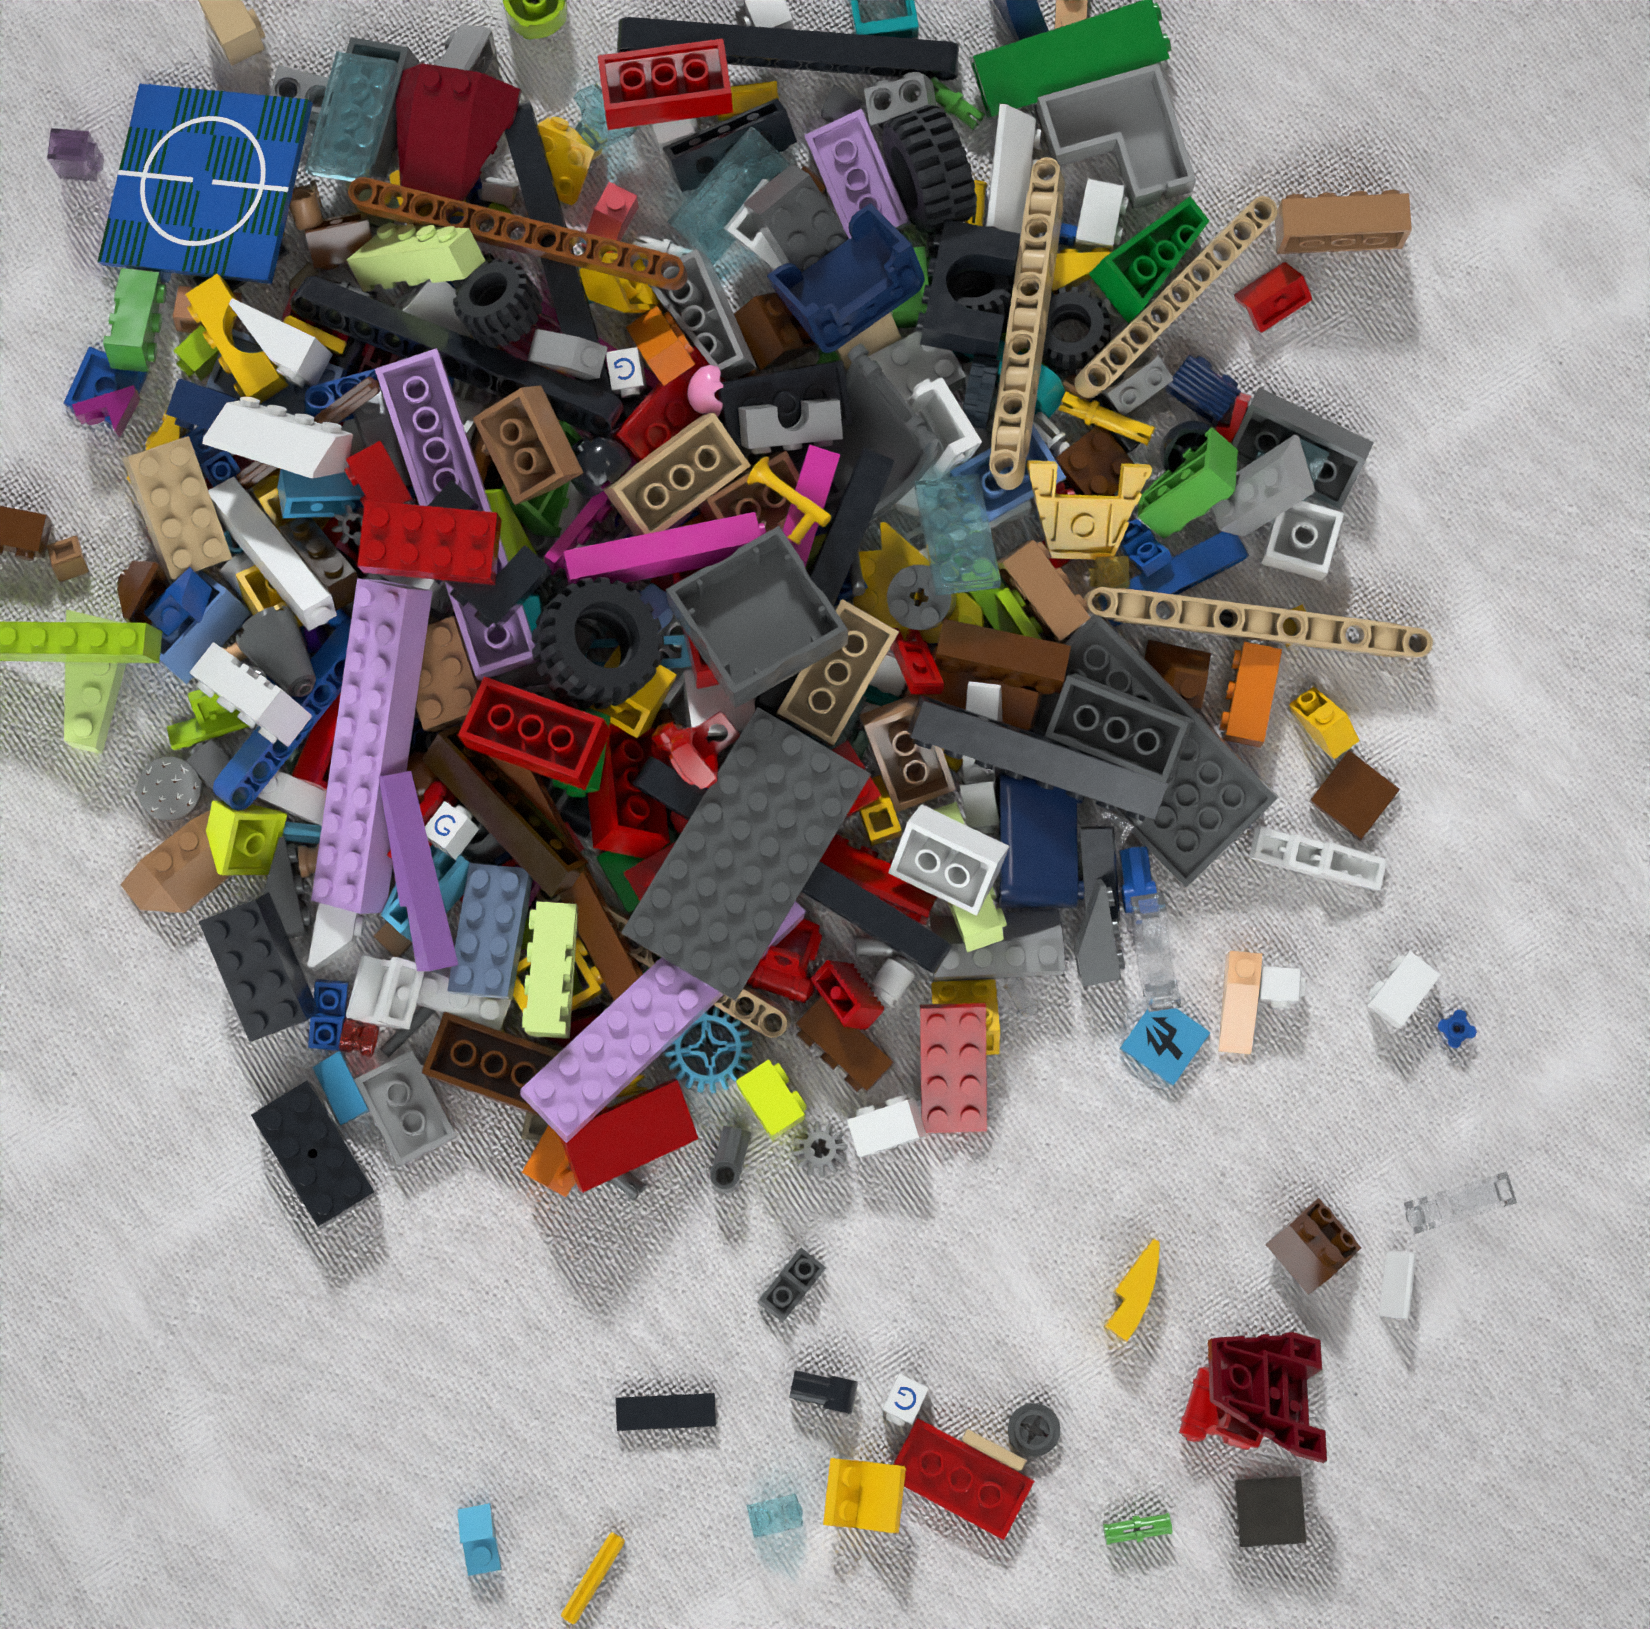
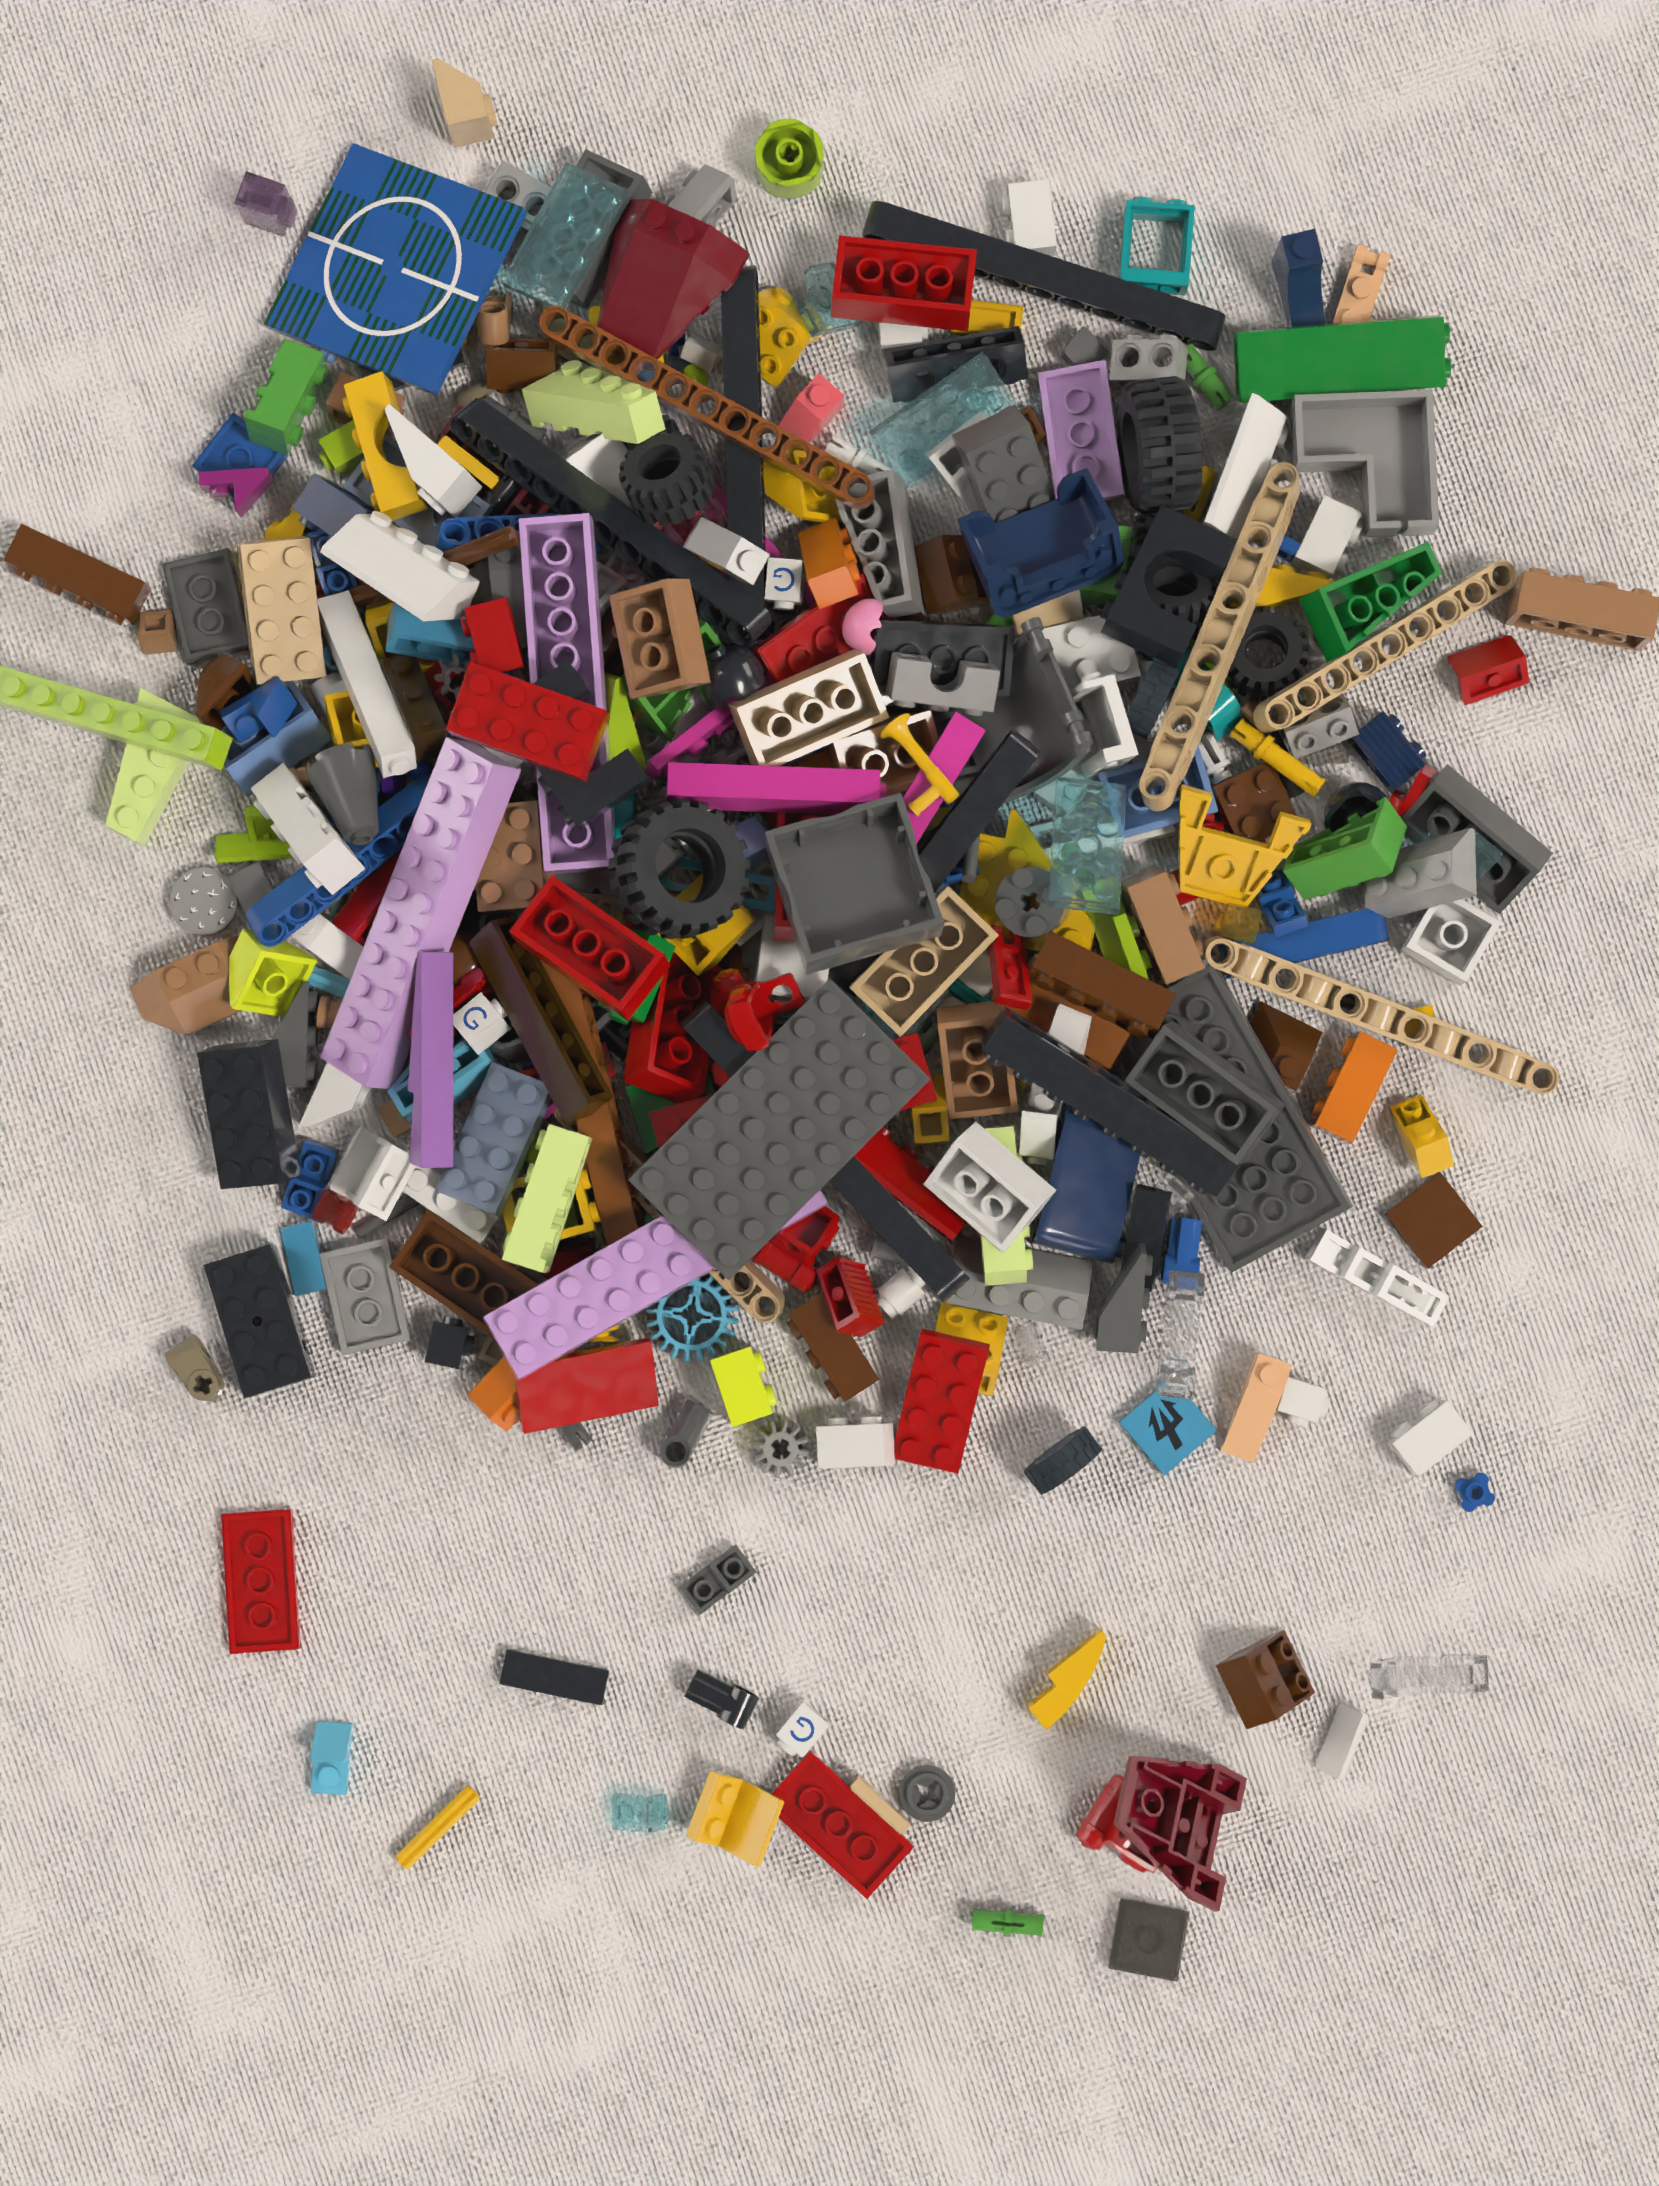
camera: 20 degrees right, 5 degrees up
(107, 524) = (207, 605): none -> dark grey tile
(263, 1210) = (192, 1364): none -> dark tan piece
(373, 1393) = (261, 1581): none -> red tile
(493, 1130) = (449, 1343): none -> black brick
(1078, 1093) = (1062, 1460): none -> black wheel

